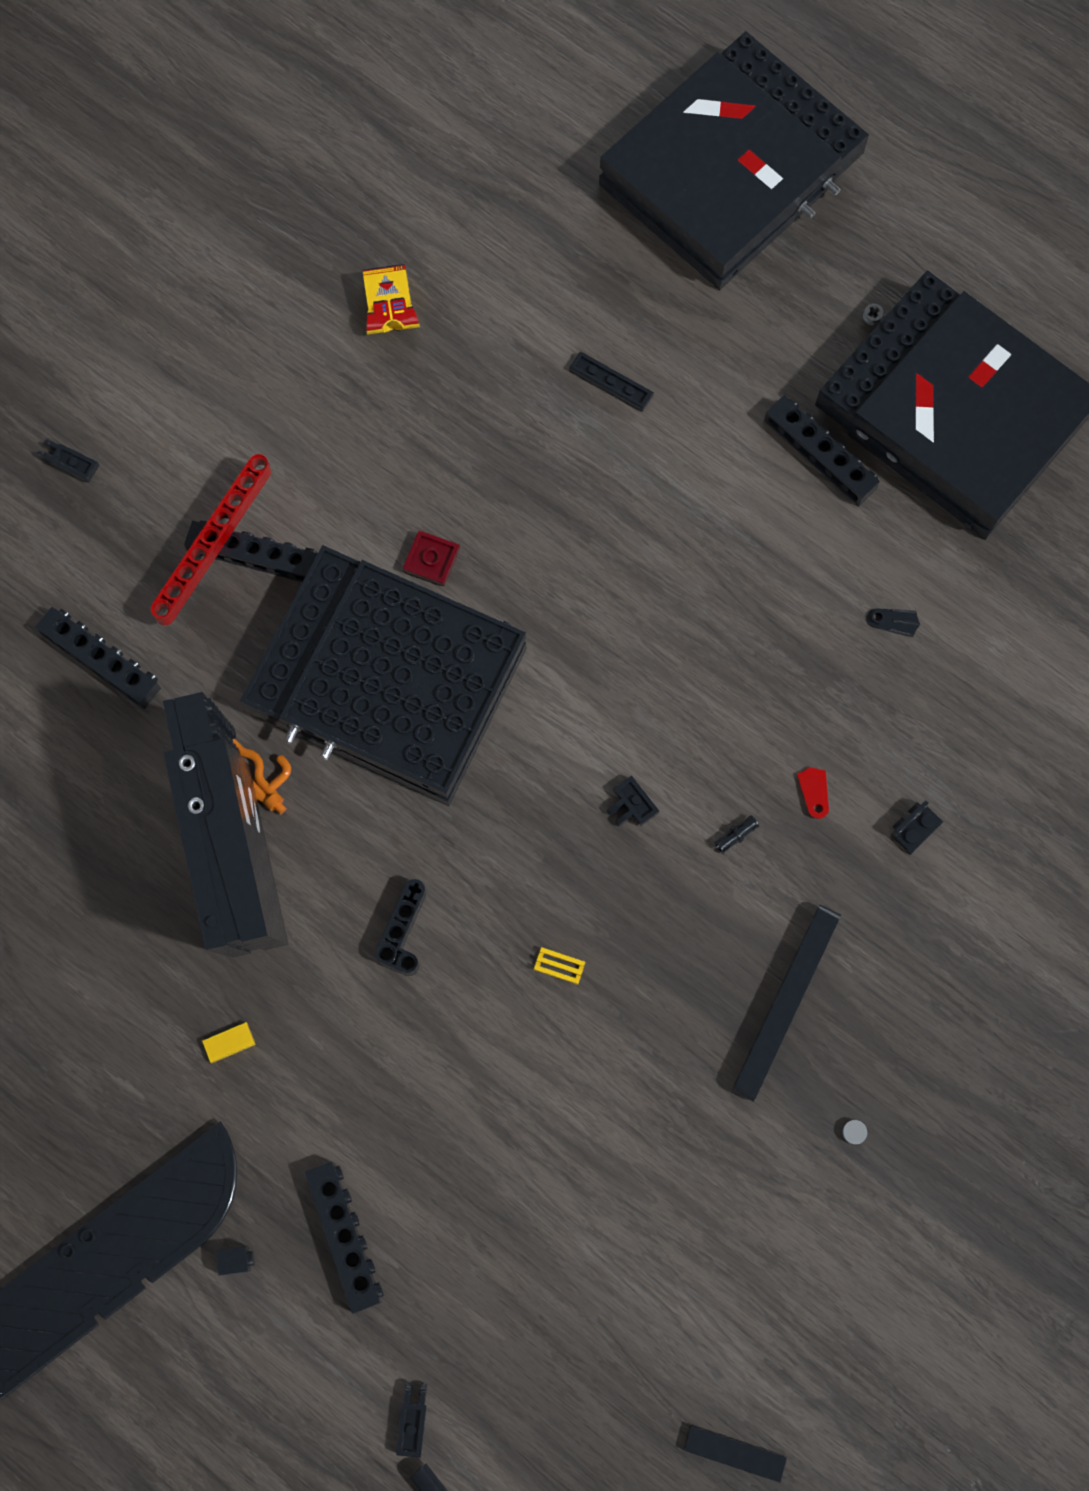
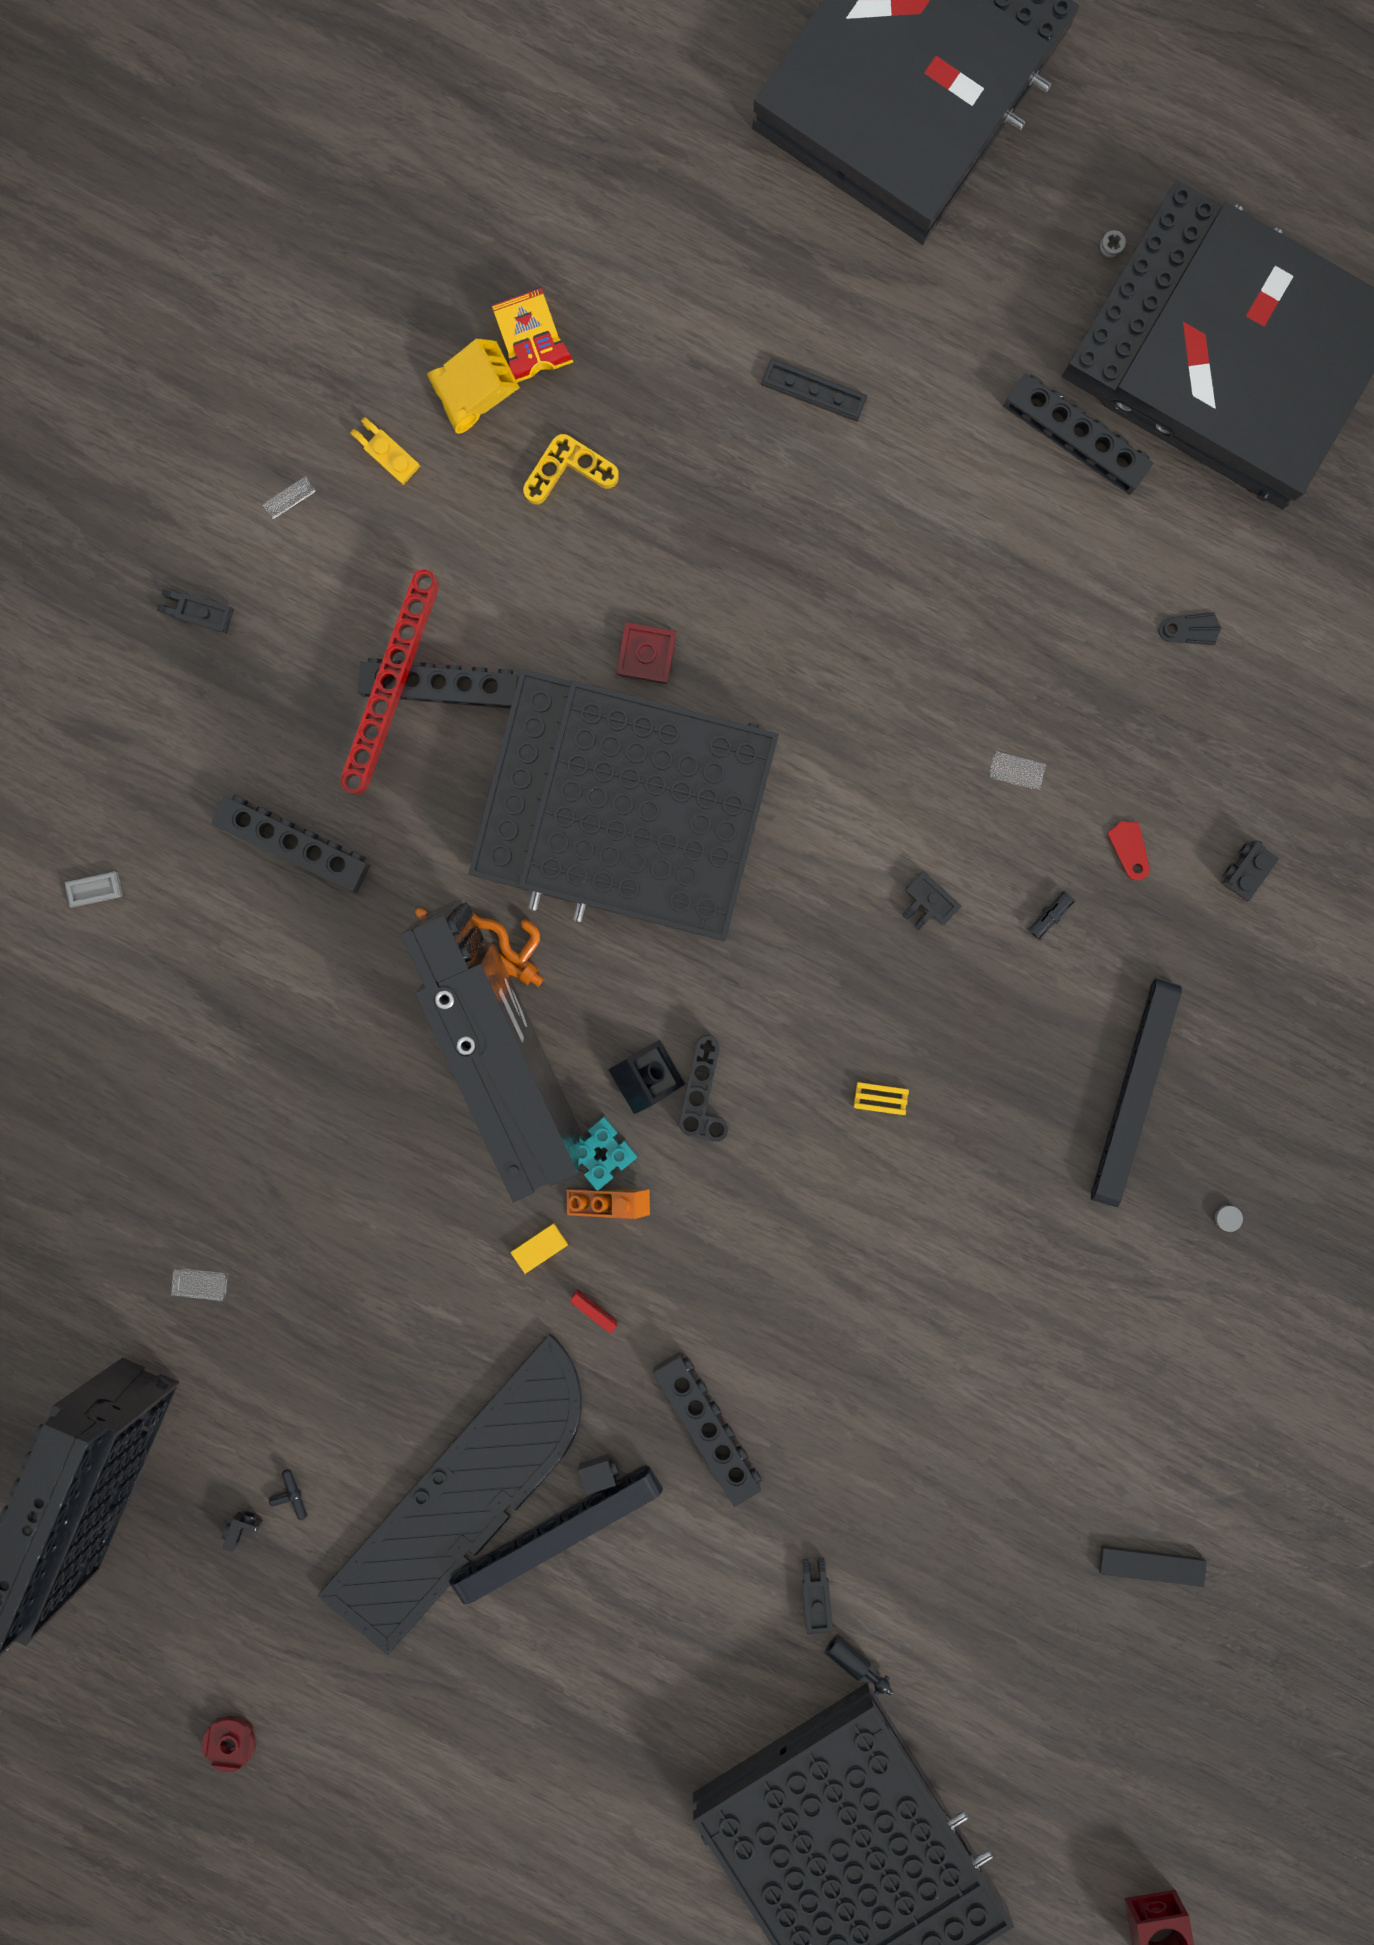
camera: 15 degrees left, 15 degrees up
(166, 387) = (289, 497): none -> clear tile
(182, 1311) = (555, 1535): none -> black beam
(254, 368) = (387, 452): none -> yellow hinge
(264, 1108) = (593, 1311): none -> red tile
(299, 1012) = (609, 1202): none -> orange slope
(315, 969) = (618, 1153): none -> teal brick
(334, 326) = (473, 383): none -> yellow piece
(356, 907) = (646, 1077): none -> black slope
(399, 398) = (569, 459): none -> yellow beam
(727, 708) = (1017, 770): none -> clear tile

